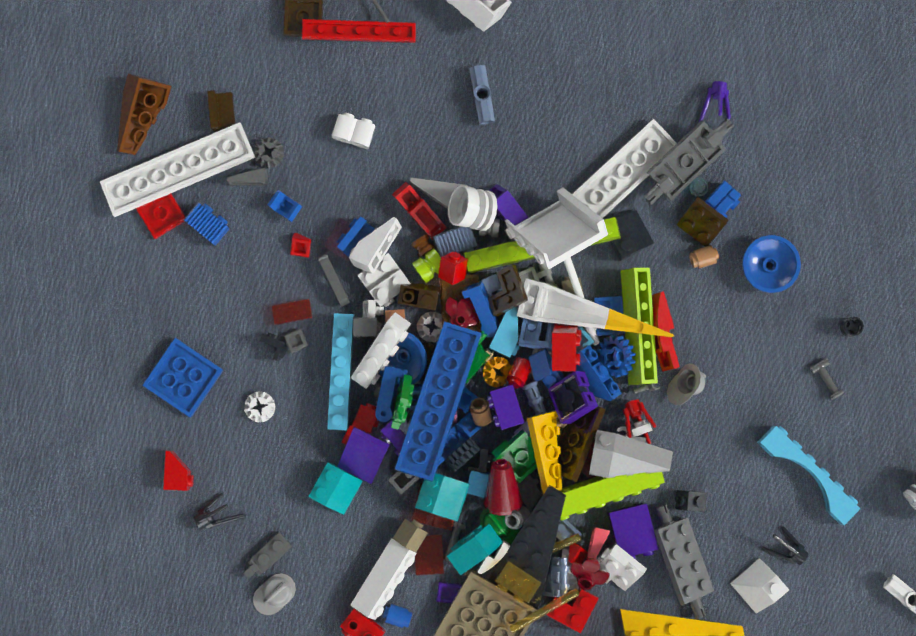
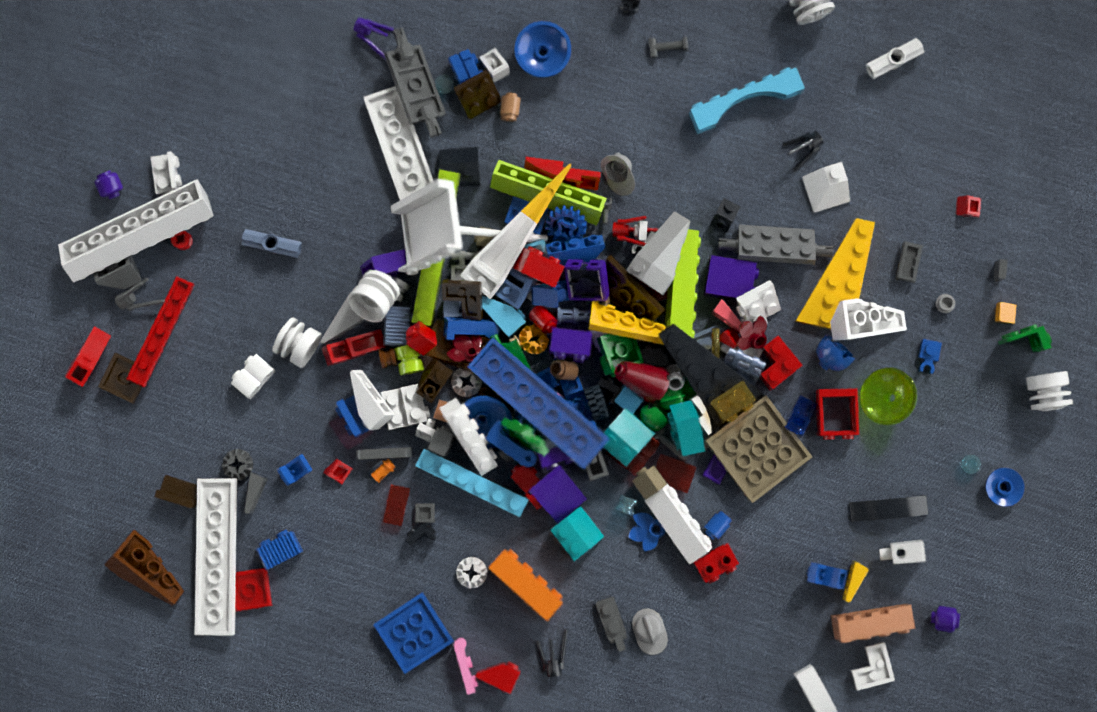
camera: 70 degrees left, 0 degrees up
(172, 437) = (465, 664): none -> bright pink plate
(268, 461) = (526, 584): none -> orange brick
(318, 286) = (383, 470): none -> orange pin
(363, 549) = (644, 532): none -> blue plate
(380, 523) = (626, 505): none -> clear light blue wheel
(401, 154) = (294, 341): none -> white wheel
(449, 17) = (185, 242): none -> red wheel
(470, 513) = (652, 418): none -> green hair
(544, 610) = (768, 388): clear yellow bar -> none
(737, 226) = (495, 65): none -> white slope

